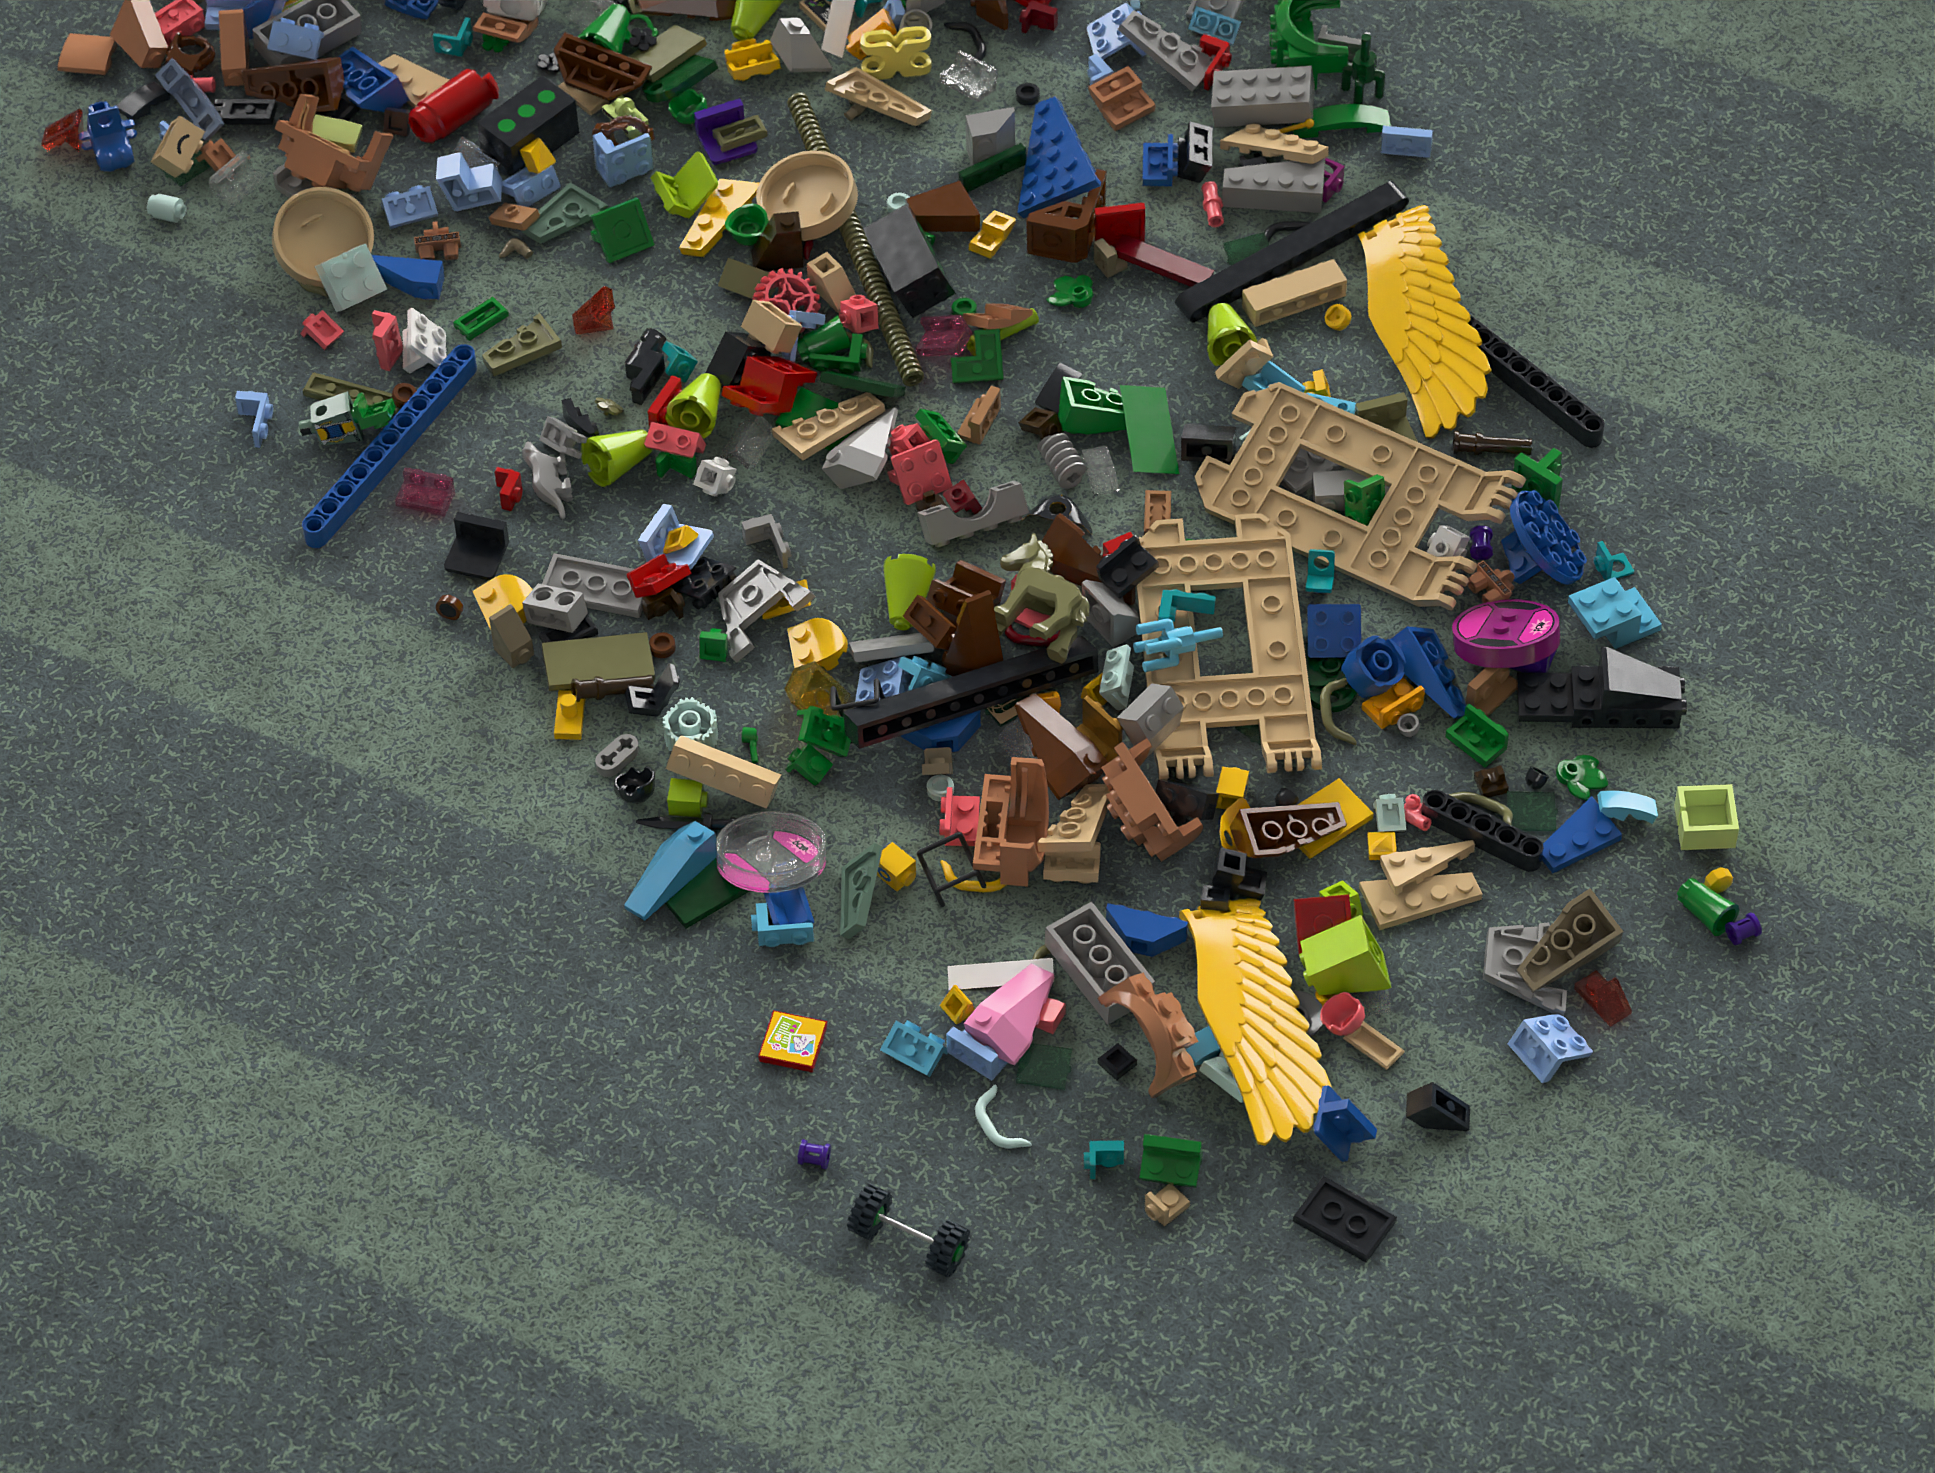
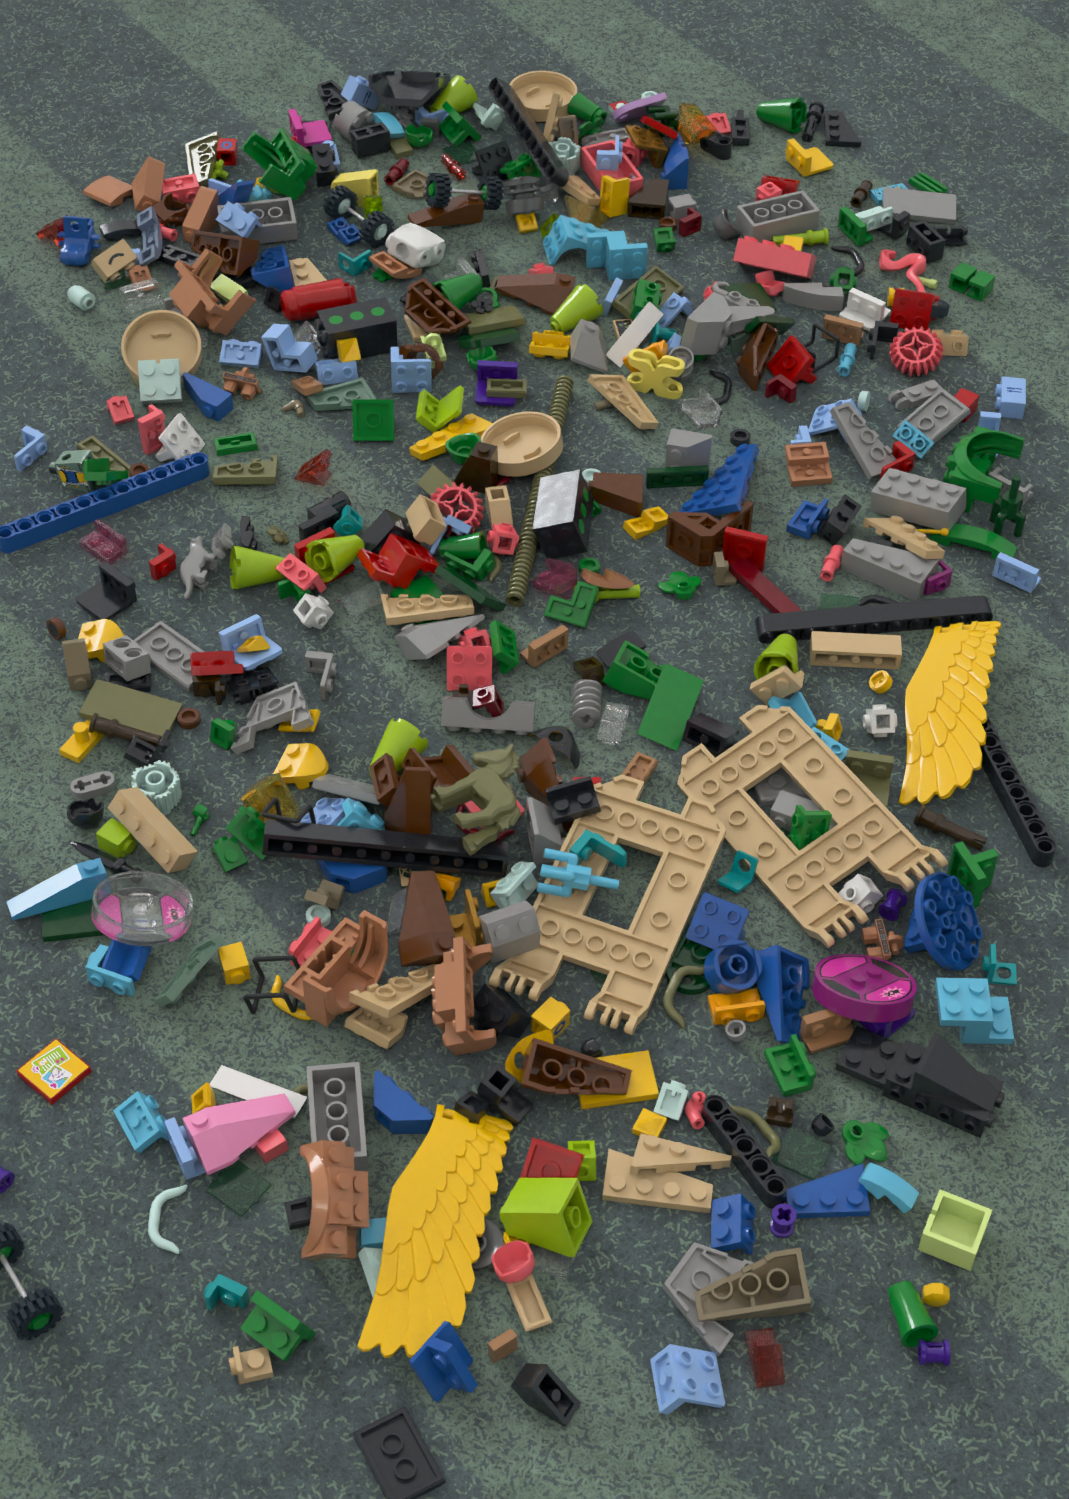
camera: 25 degrees right, 5 degrees down
(1364, 359) = (887, 723): none -> white brick
(1376, 1088) = (502, 1345): none -> medium nougat tile
(1508, 898) = (732, 1224): none -> blue bracket
(1552, 874) = (782, 1220): none -> dark purple bush

